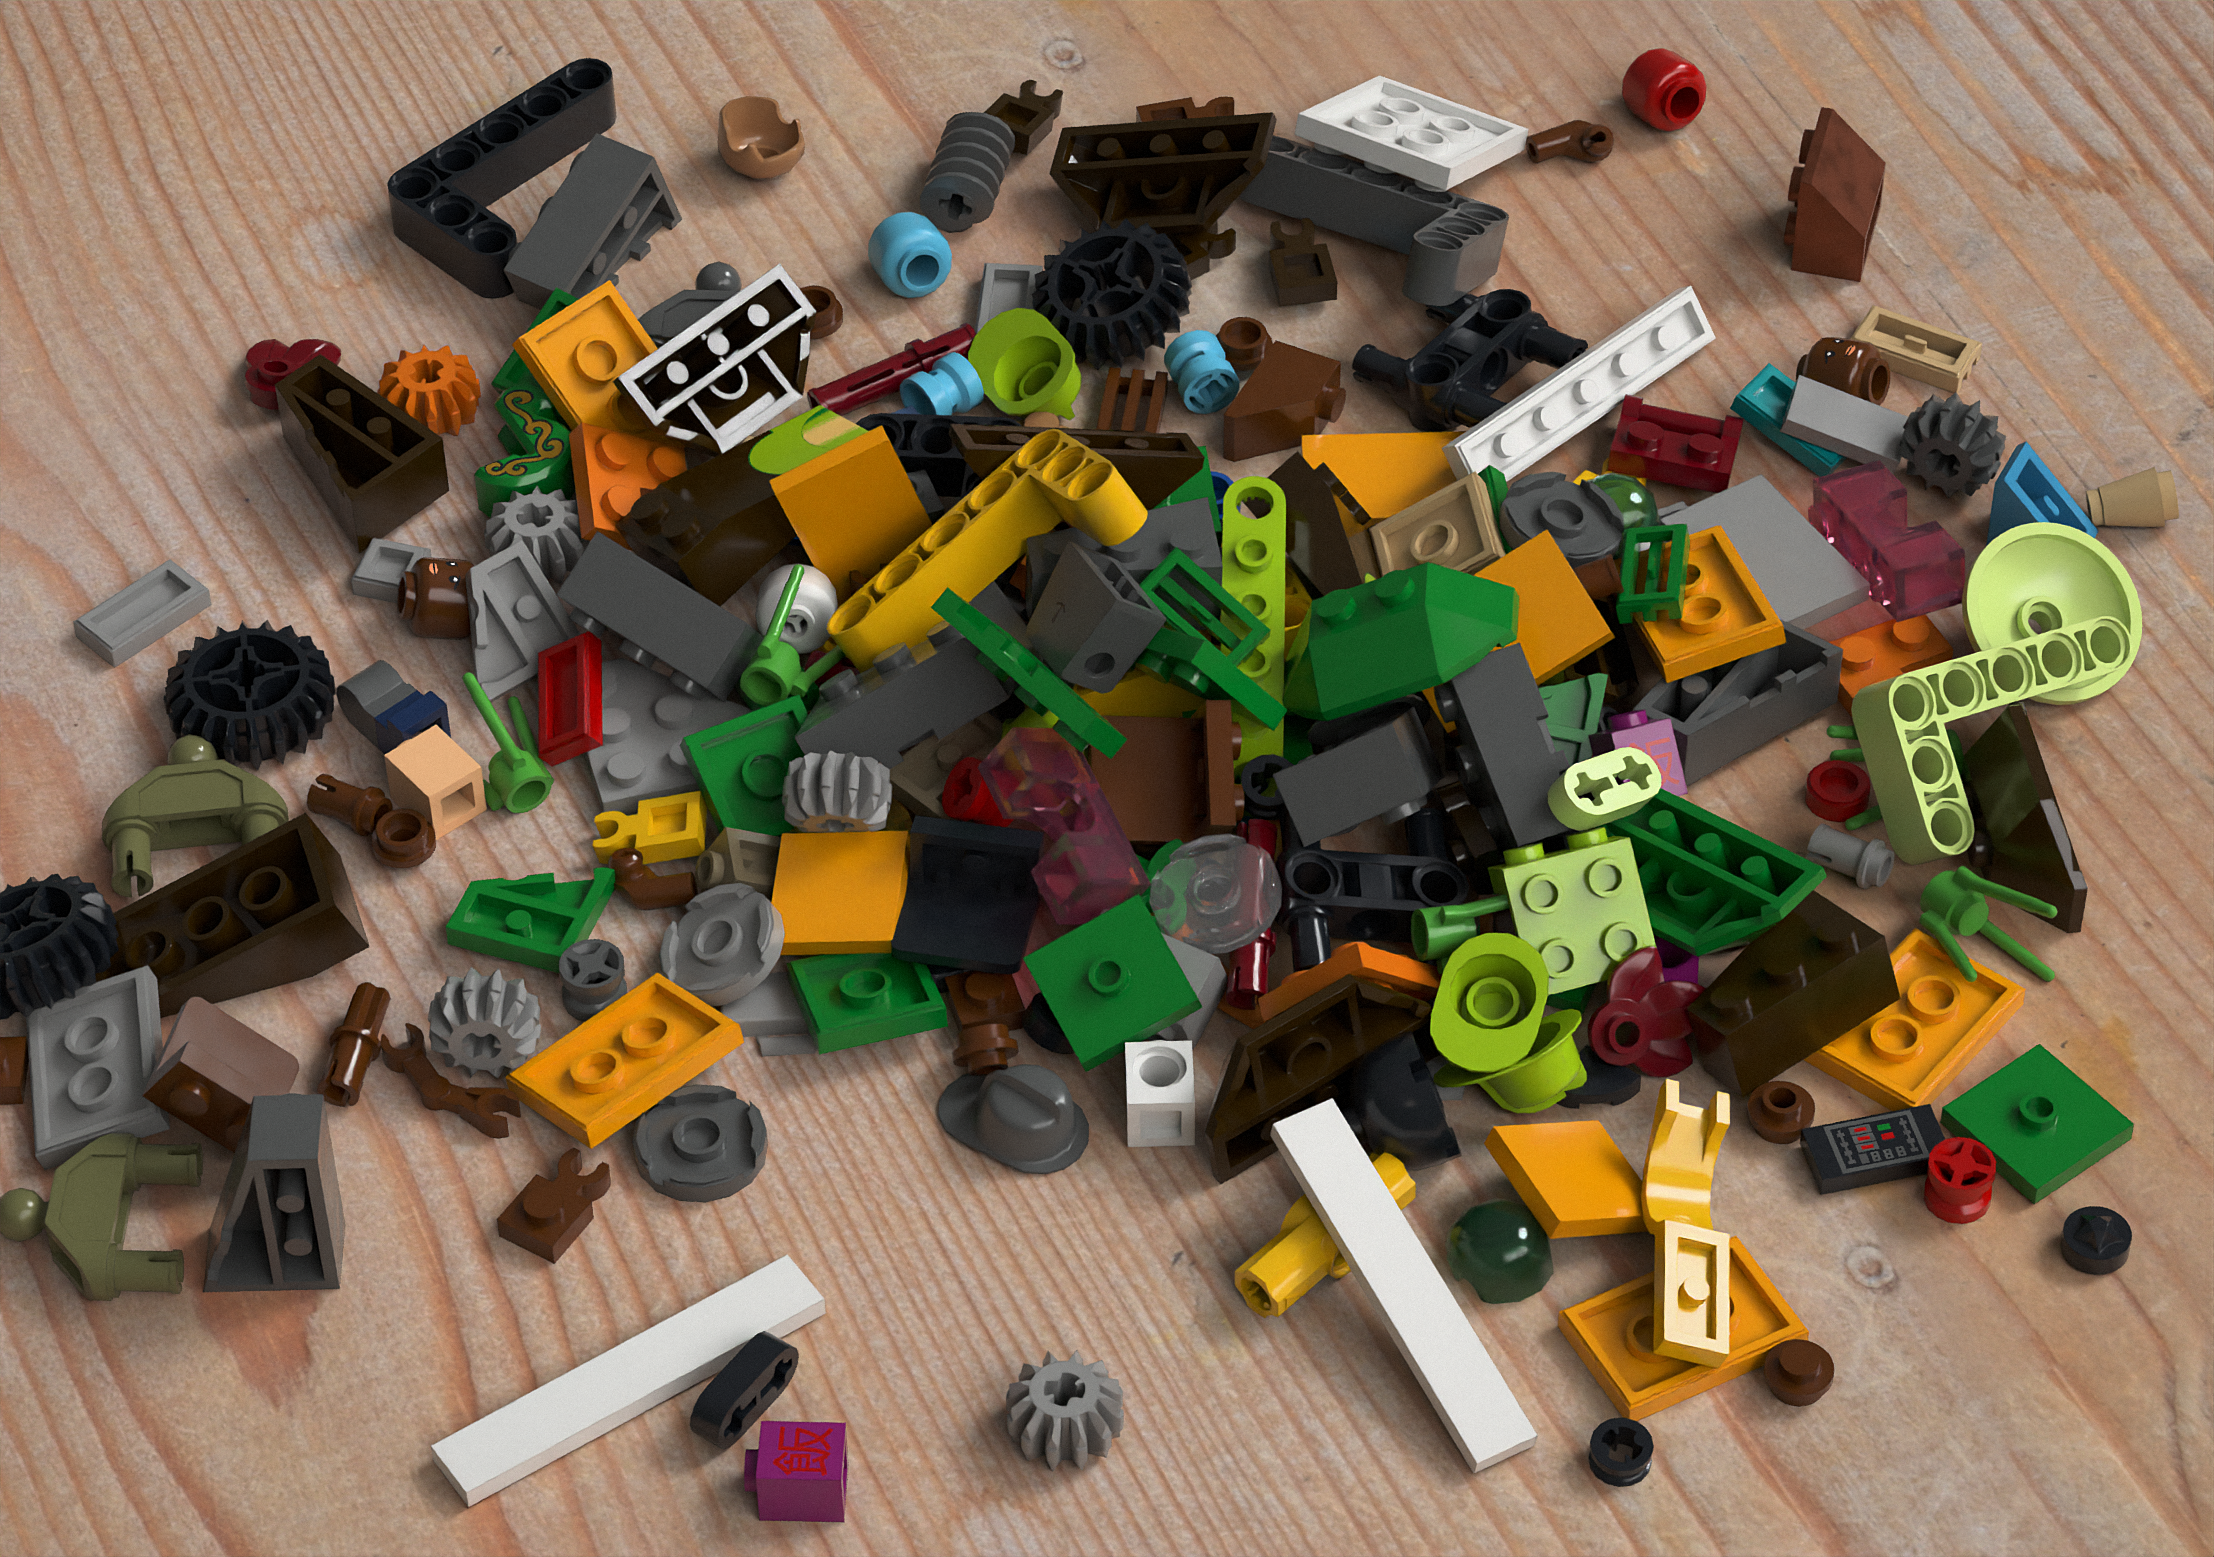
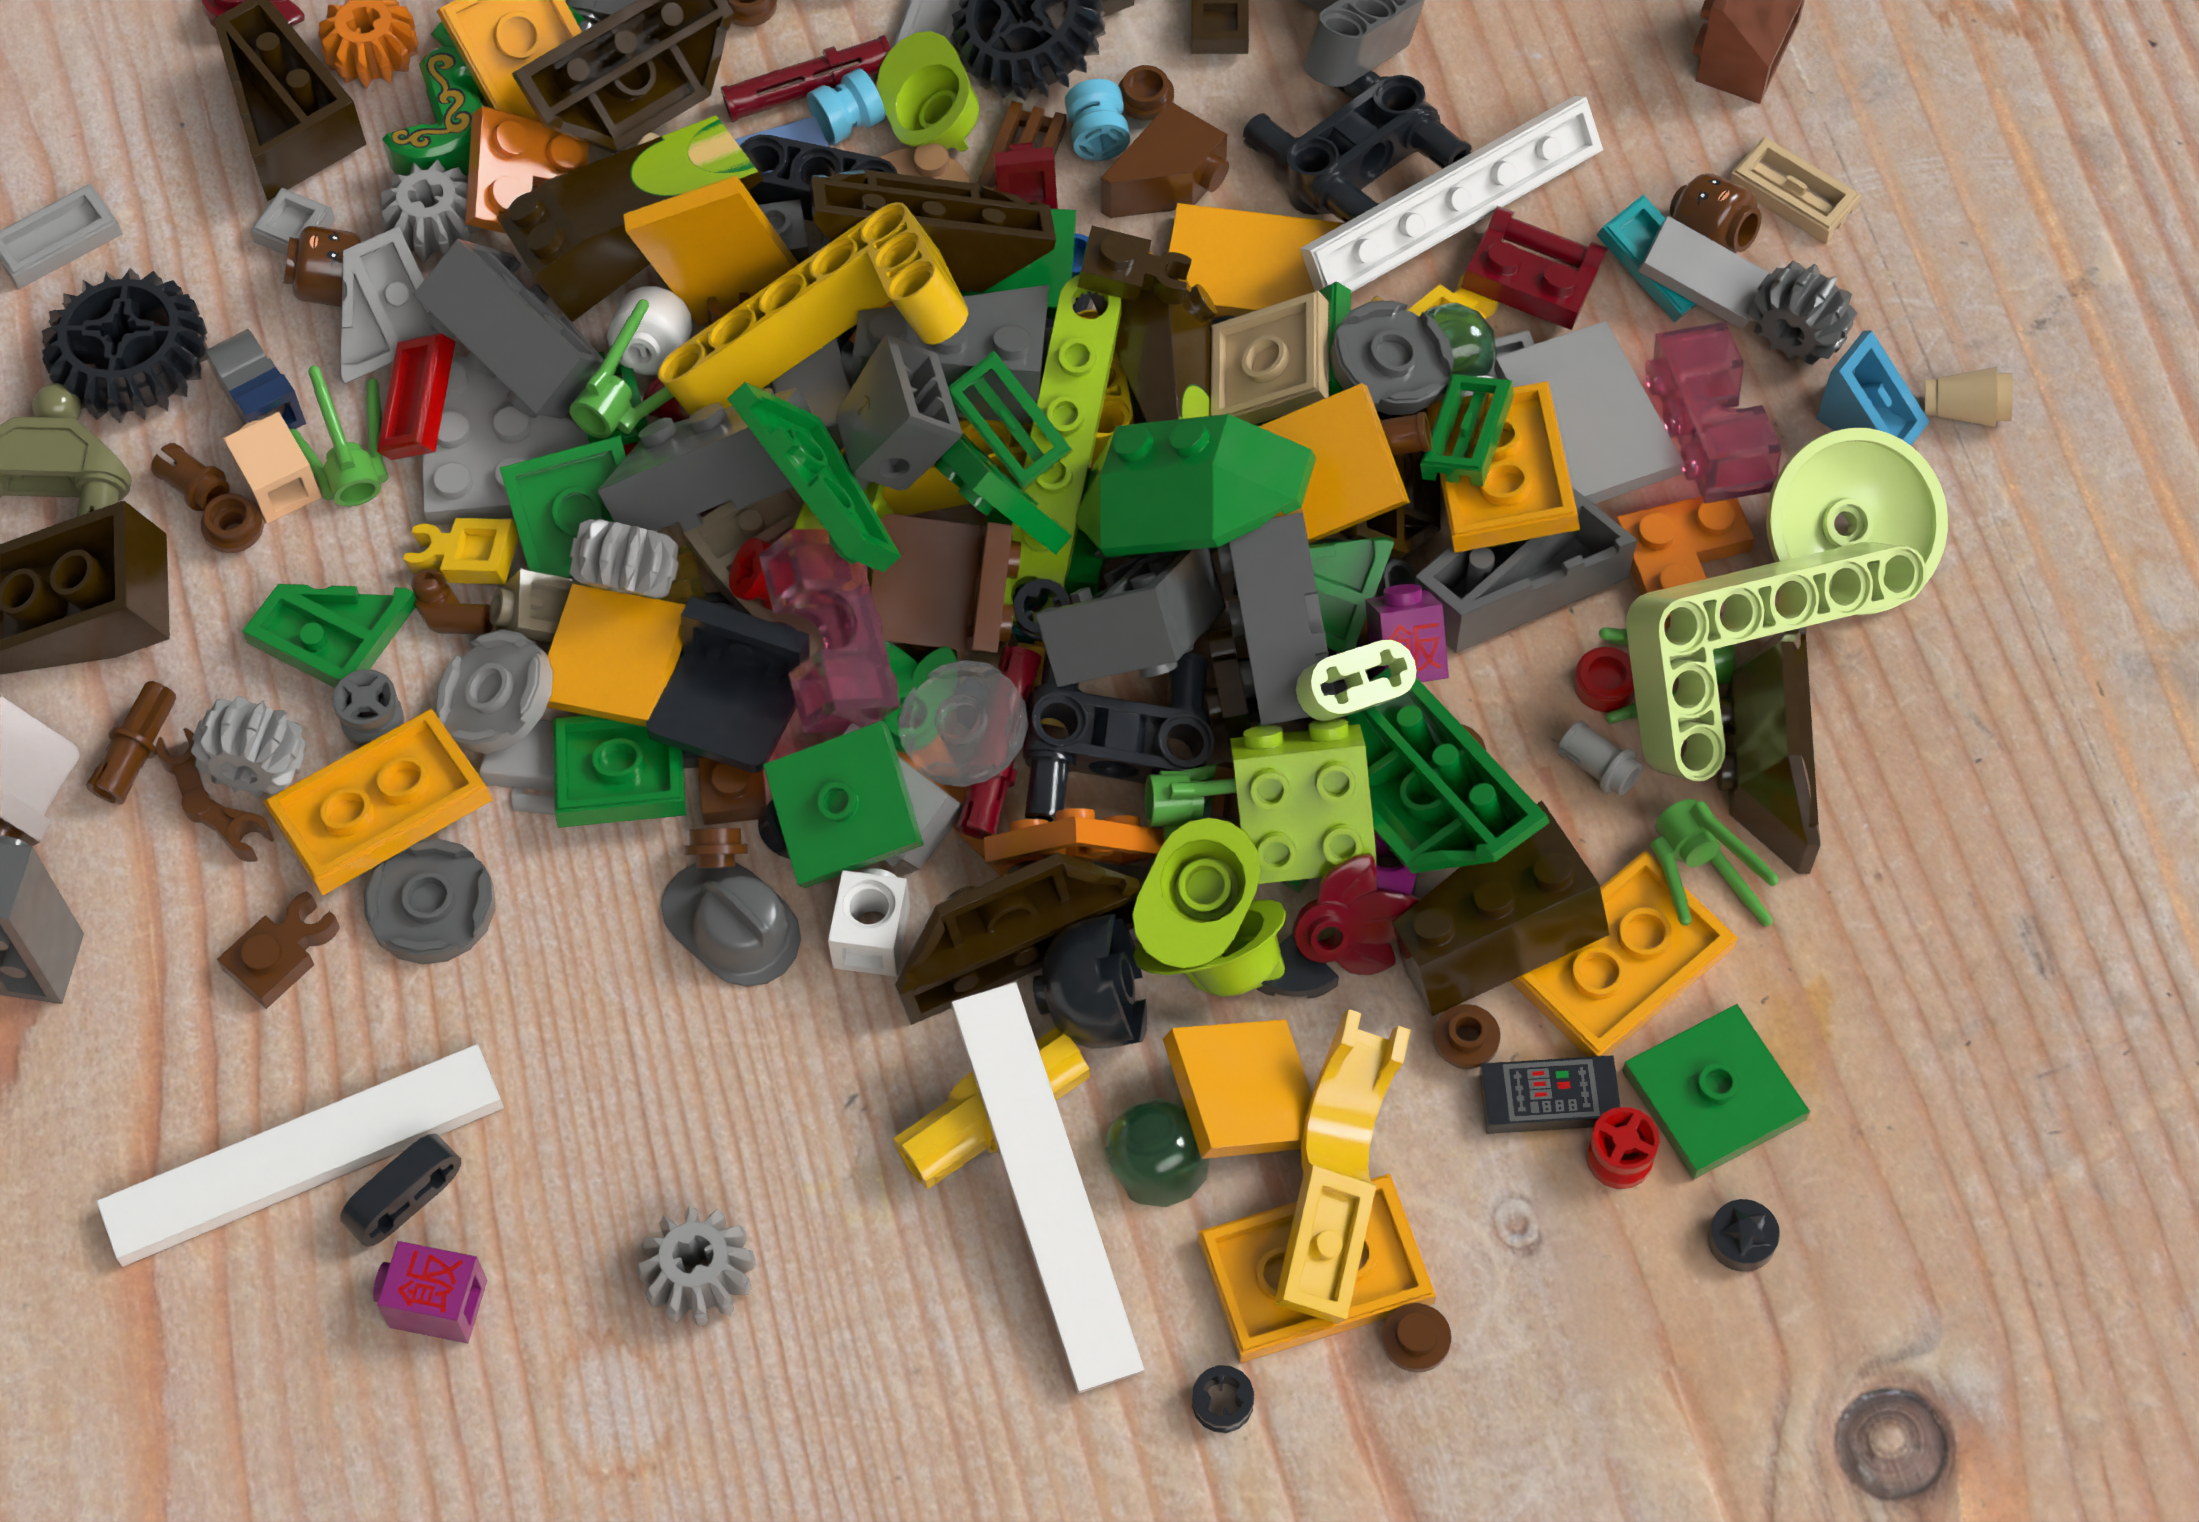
camera: 10 degrees right, 15 degrees up
(1147, 413) = (1027, 173): none -> dark red tile
(1283, 466) = (1122, 267): none -> dark brown plate

